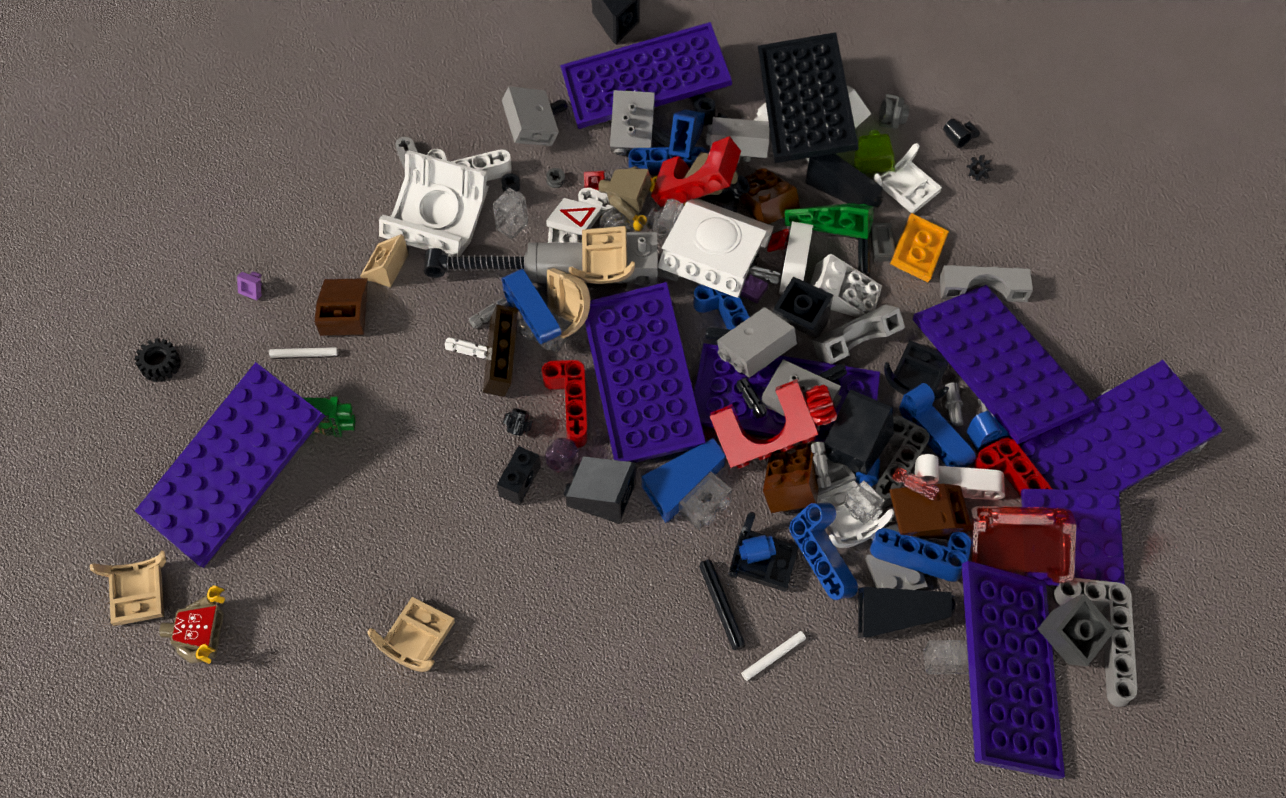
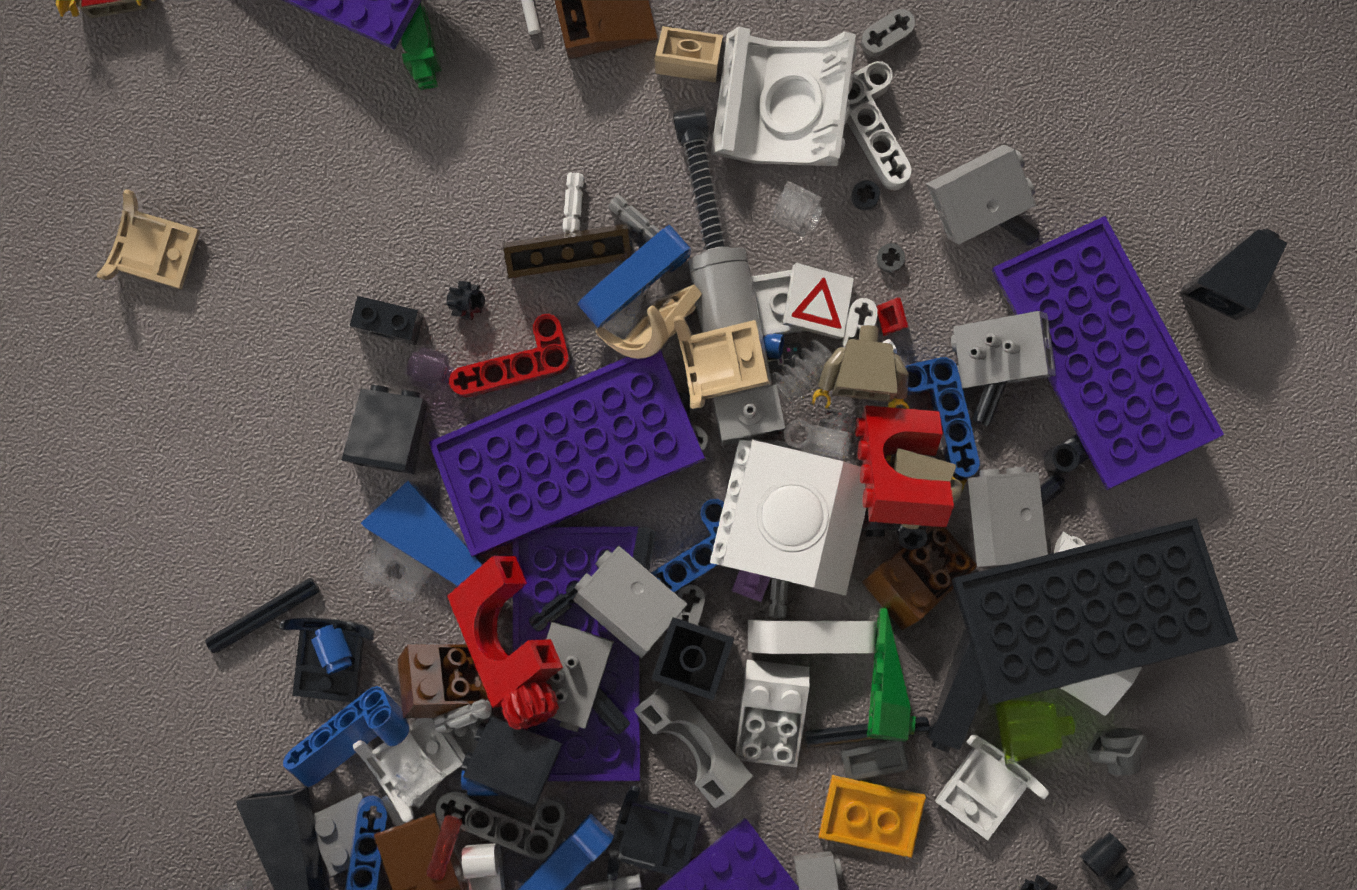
camera: 85 degrees right, 25 degrees up
(685, 132) = (994, 436): blue slope -> none
(773, 655) = (207, 691): white bar -> none
(778, 241) = (840, 606): red slope -> none

